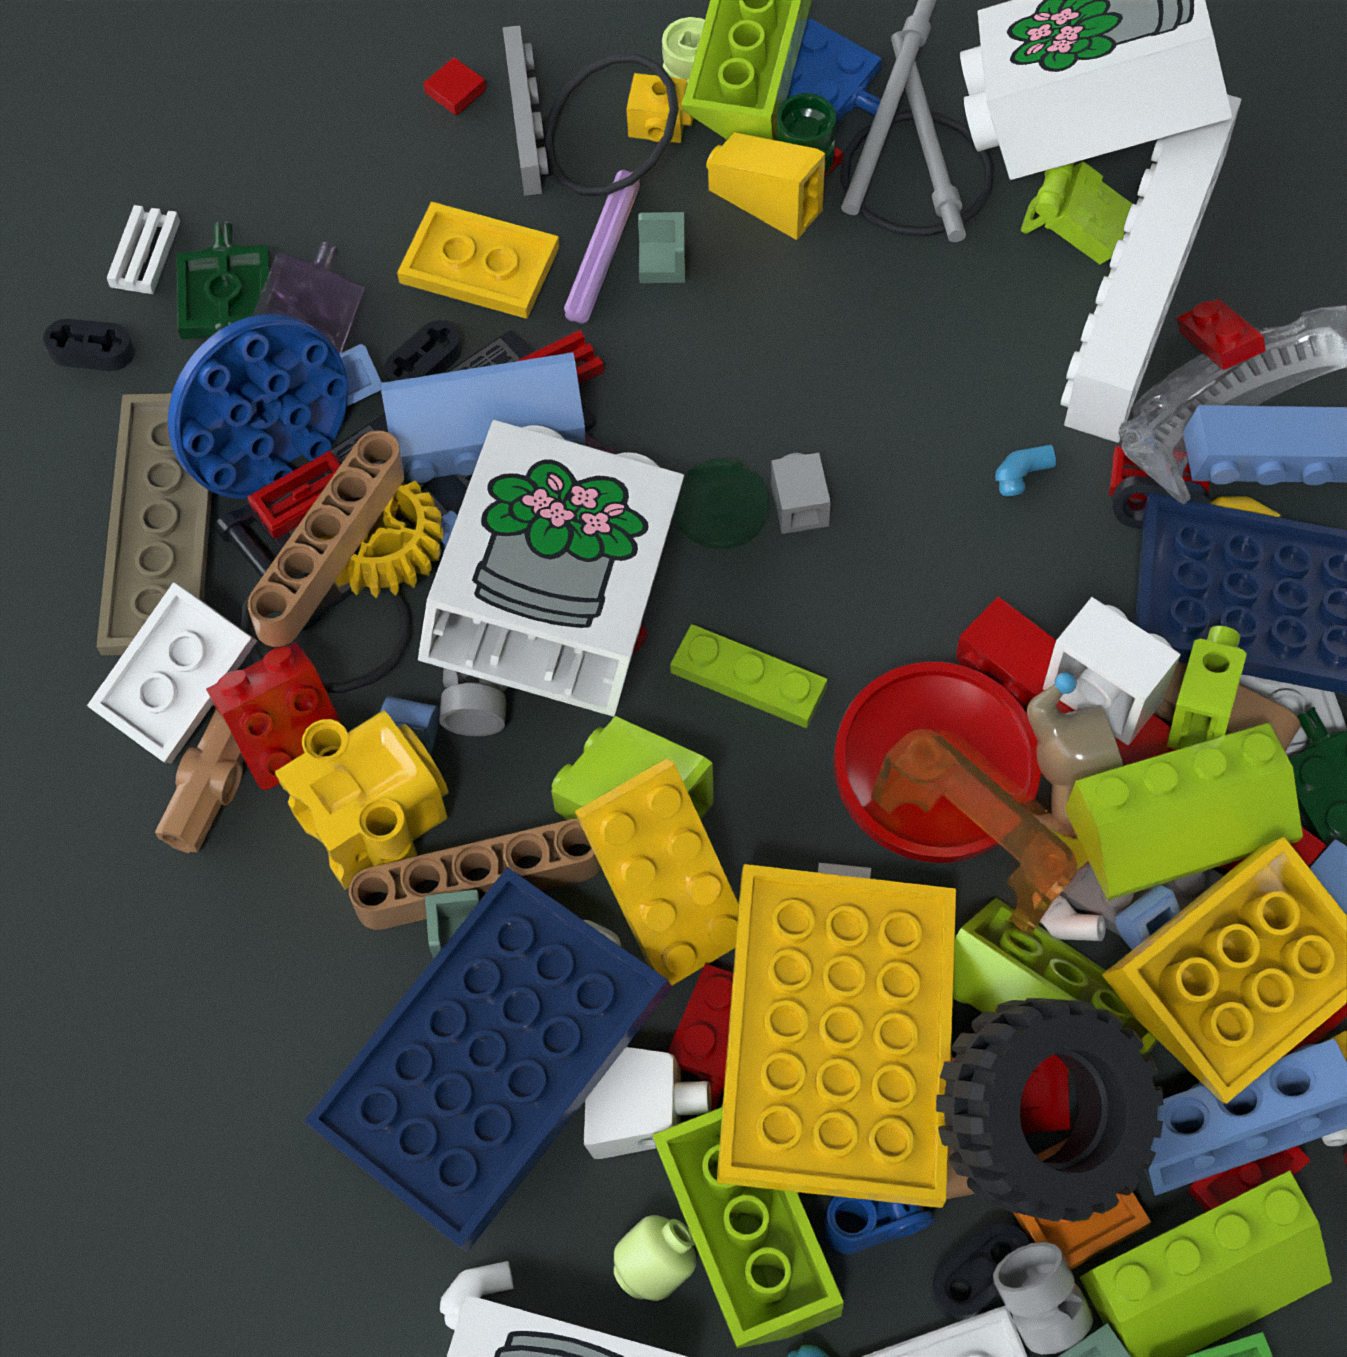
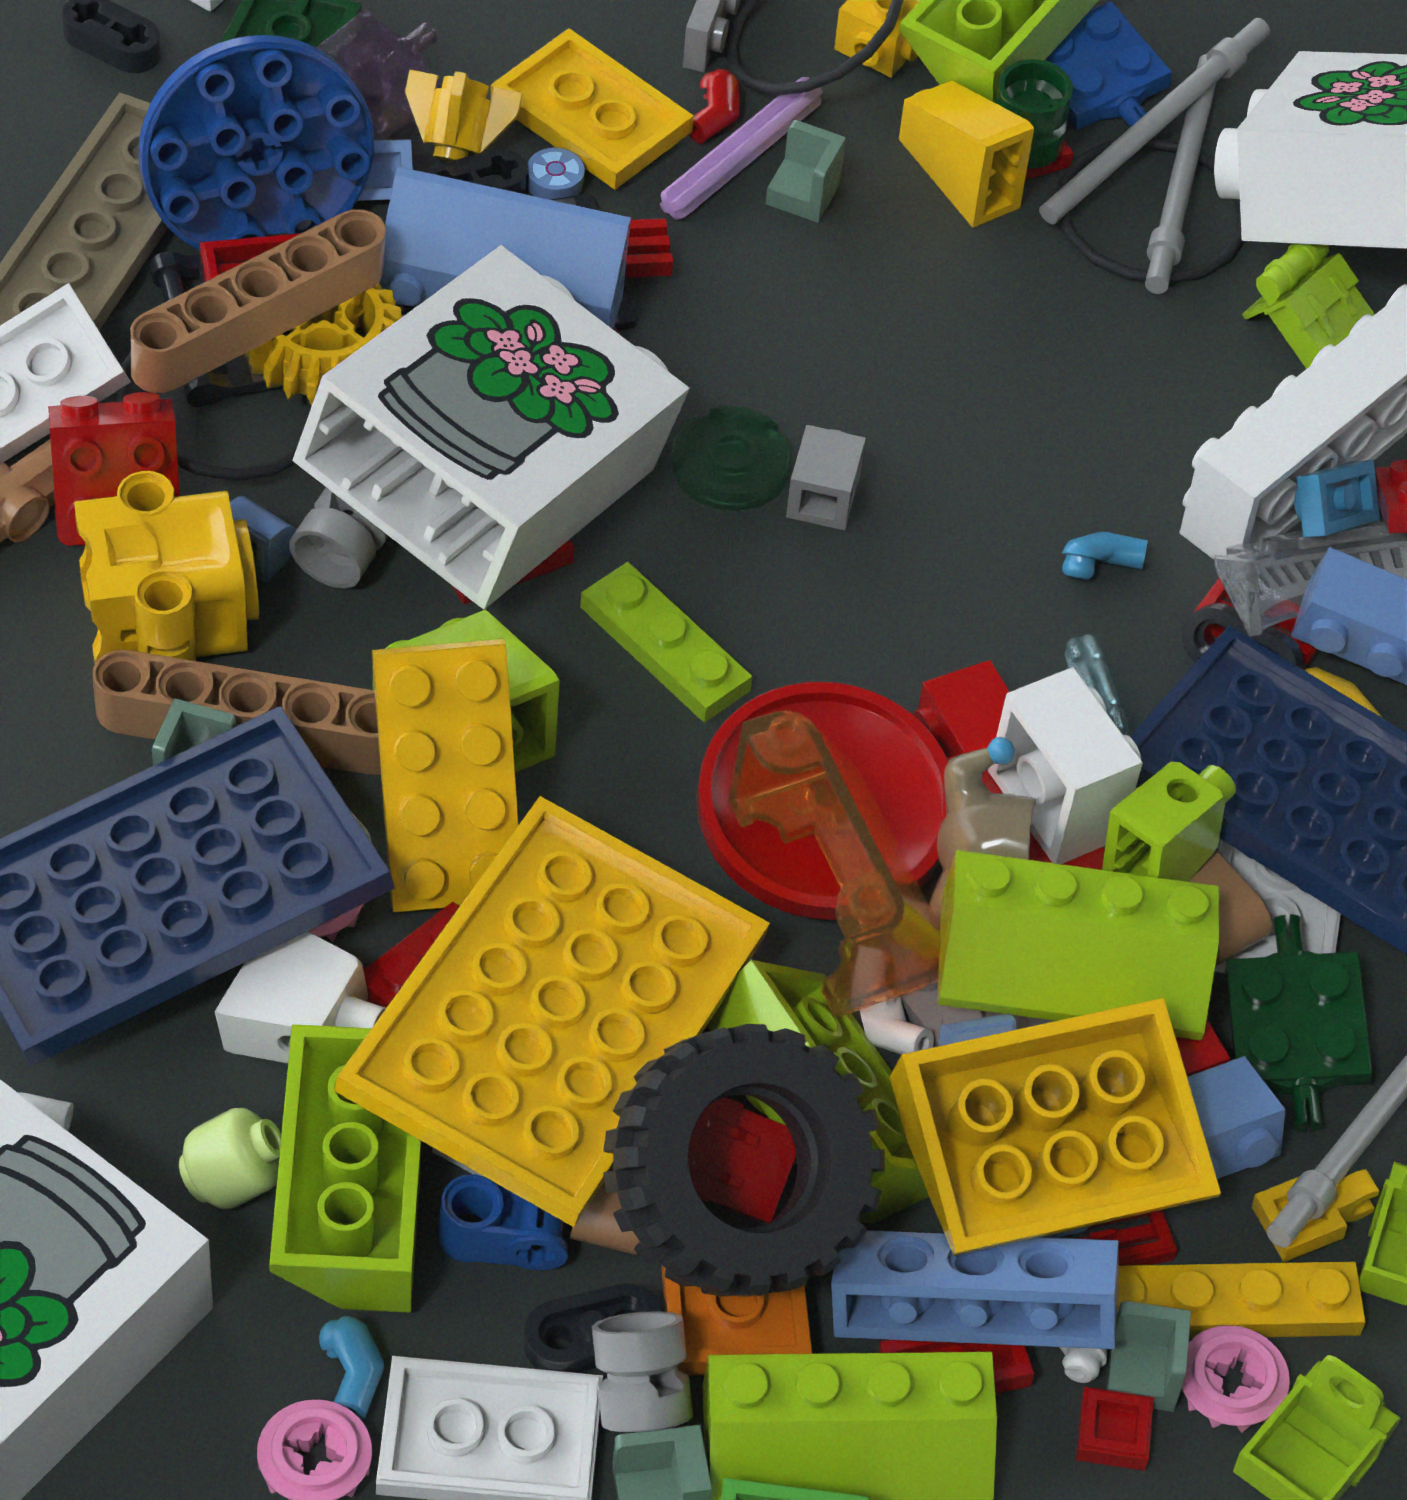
camera: 15 degrees right, 10 degrees down
(387, 308) = (458, 115): none -> yellow brick
(478, 324) = (555, 174): none -> medium blue tile
(573, 218) = (722, 107): none -> red arm
(1069, 574) = (1084, 656): none -> clear light blue axle
(1172, 358) = (1337, 498): none -> dark azure plate

